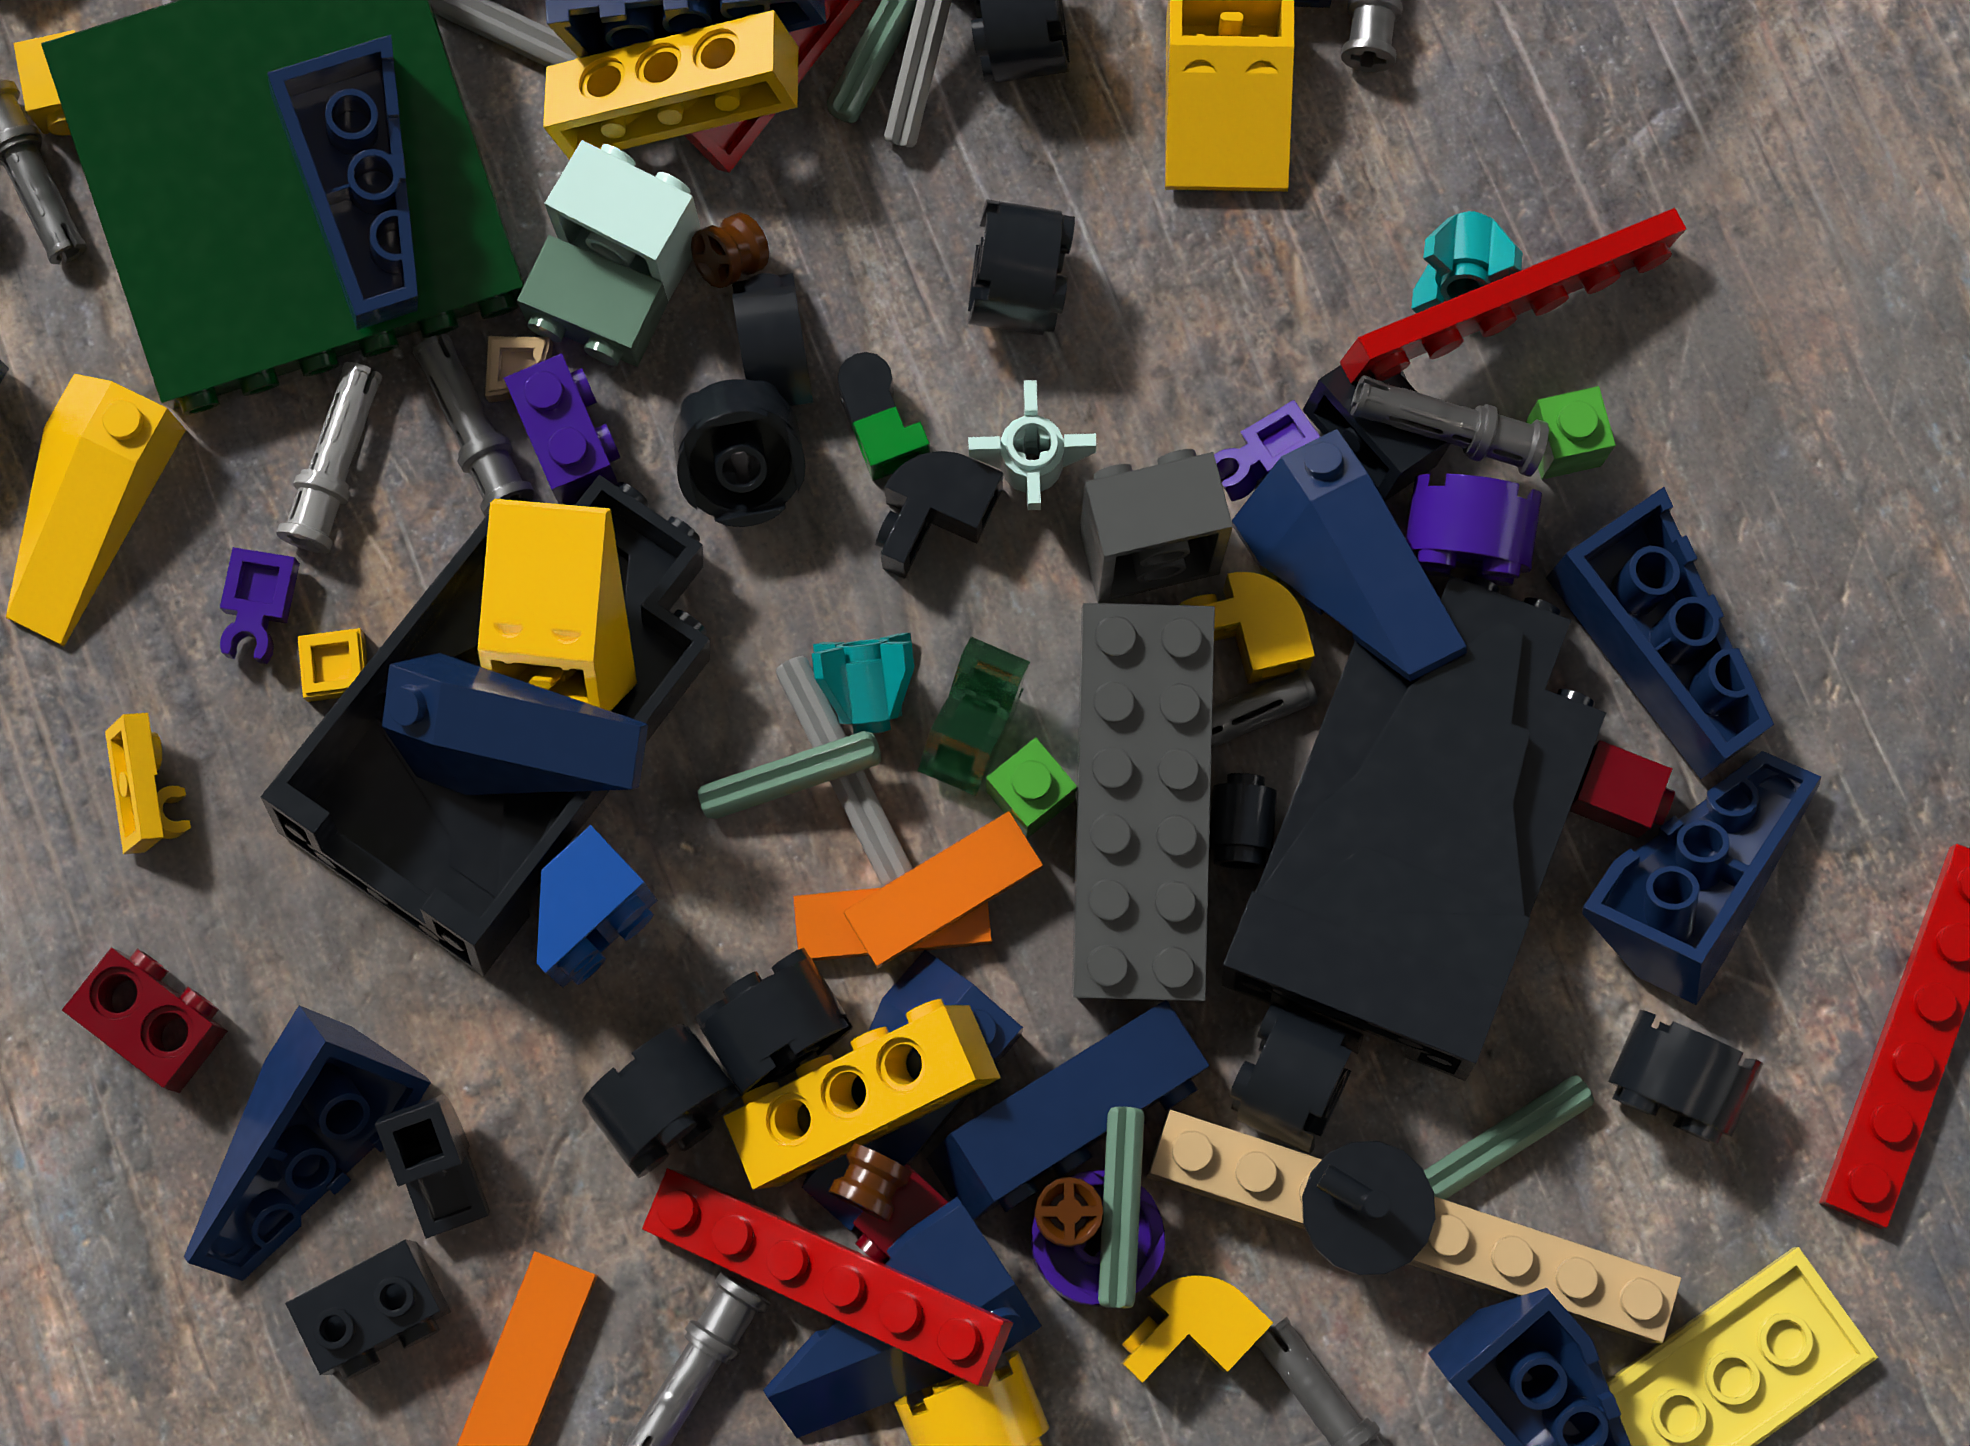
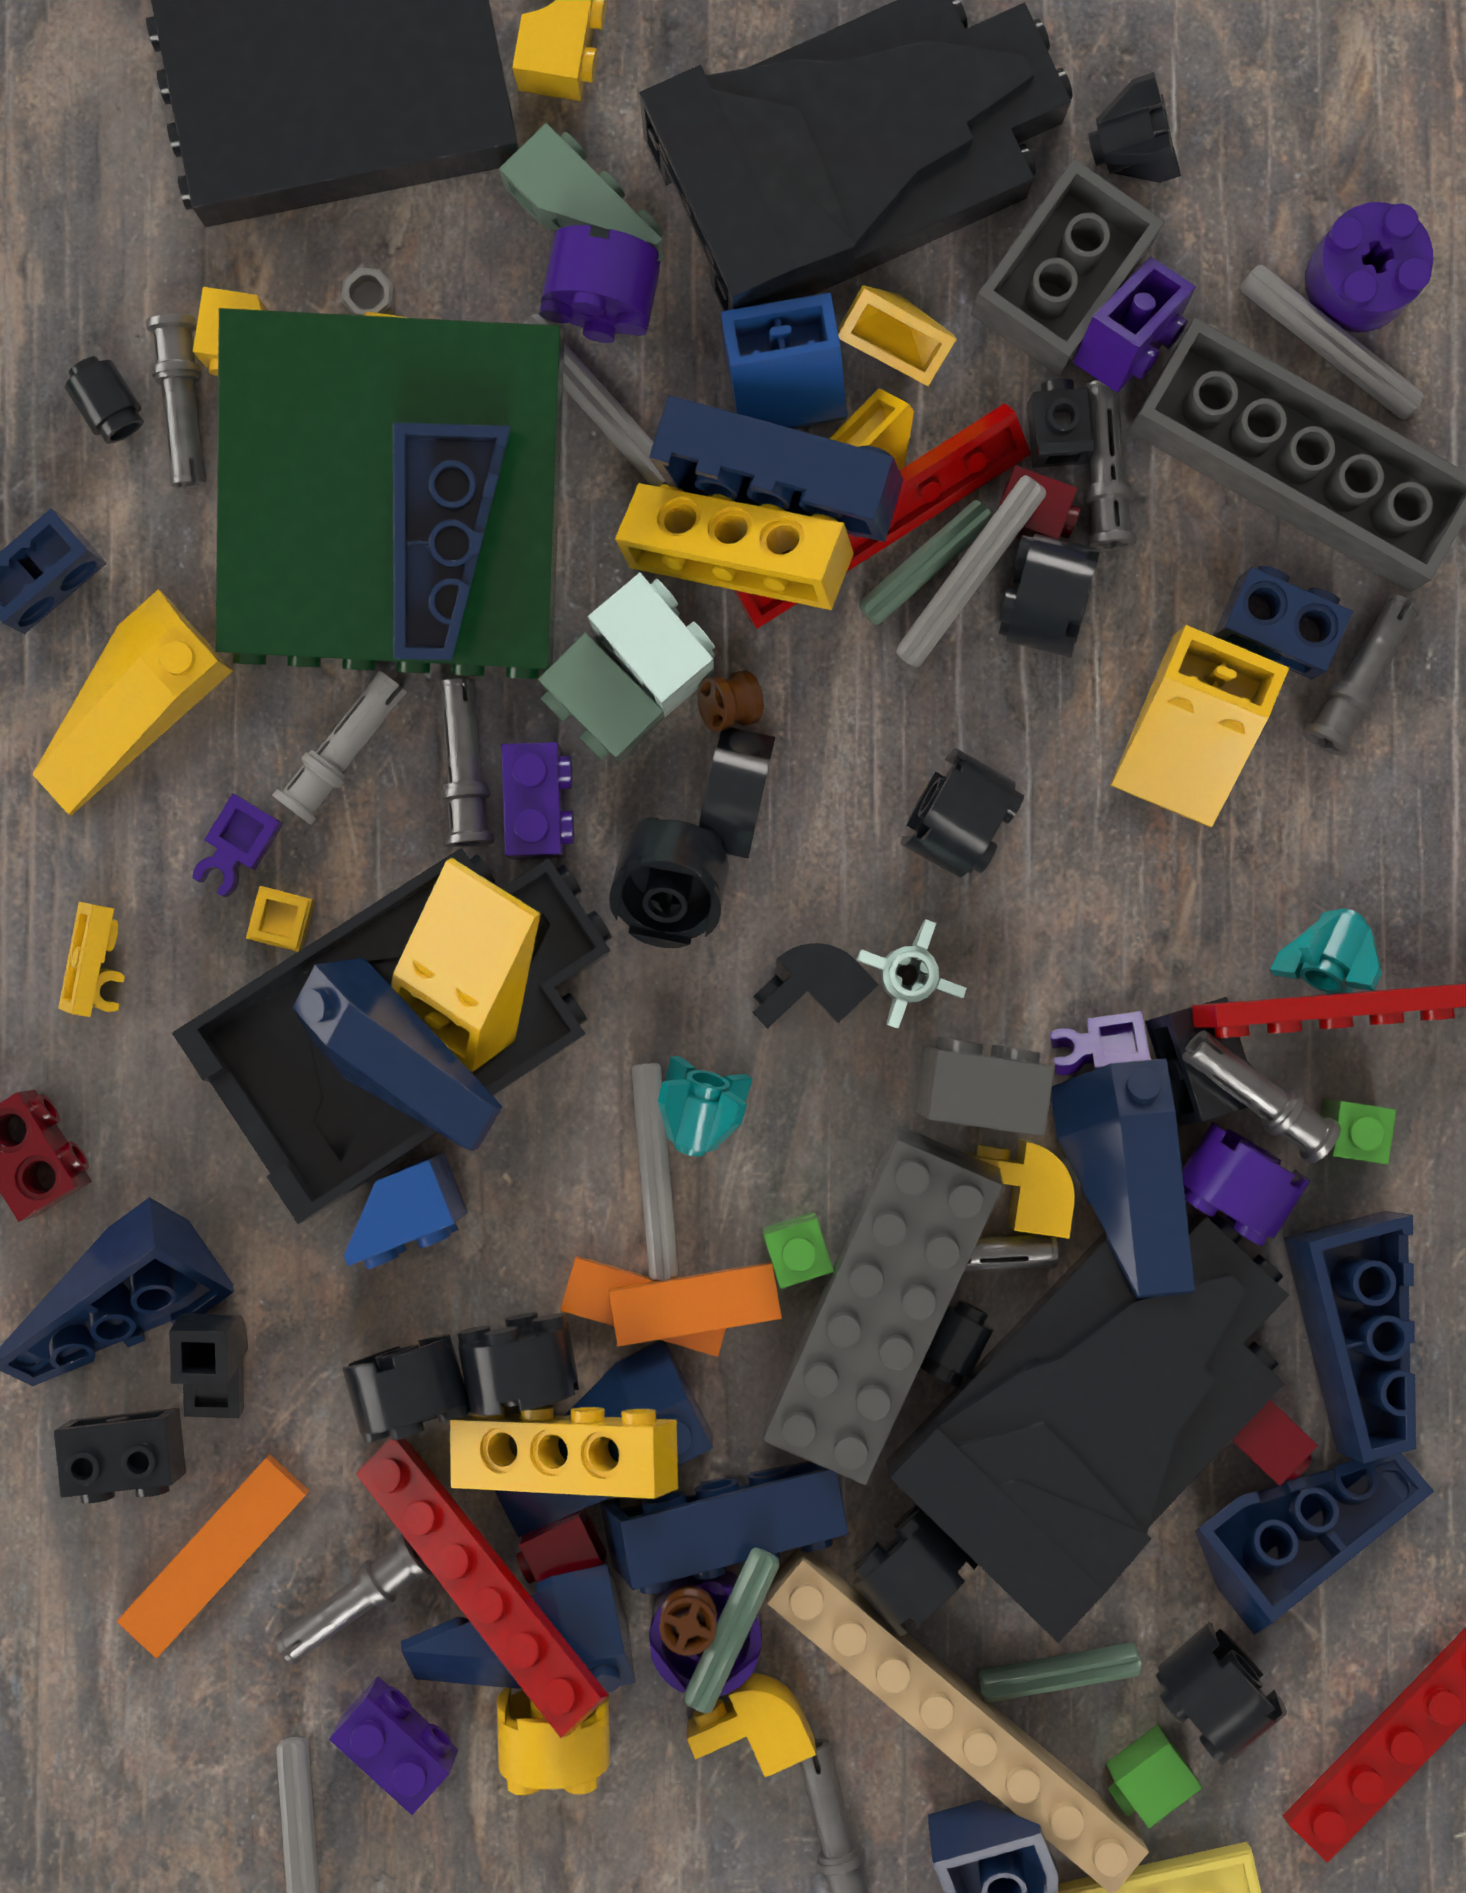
camera: 20 degrees right, 10 degrees up
(509, 356) = (519, 723): tan tile -> none
(789, 775) = (609, 1162): sand green axle -> none
(869, 405) = (794, 868): leg -> none
(870, 1182) = (542, 1528): reddish brown wheel -> none
(974, 716) = (774, 1176): clear green brick -> none
(1368, 1208) = (926, 1705): black shield -> none
(1654, 1208) = (1151, 1777): none -> bright green brick

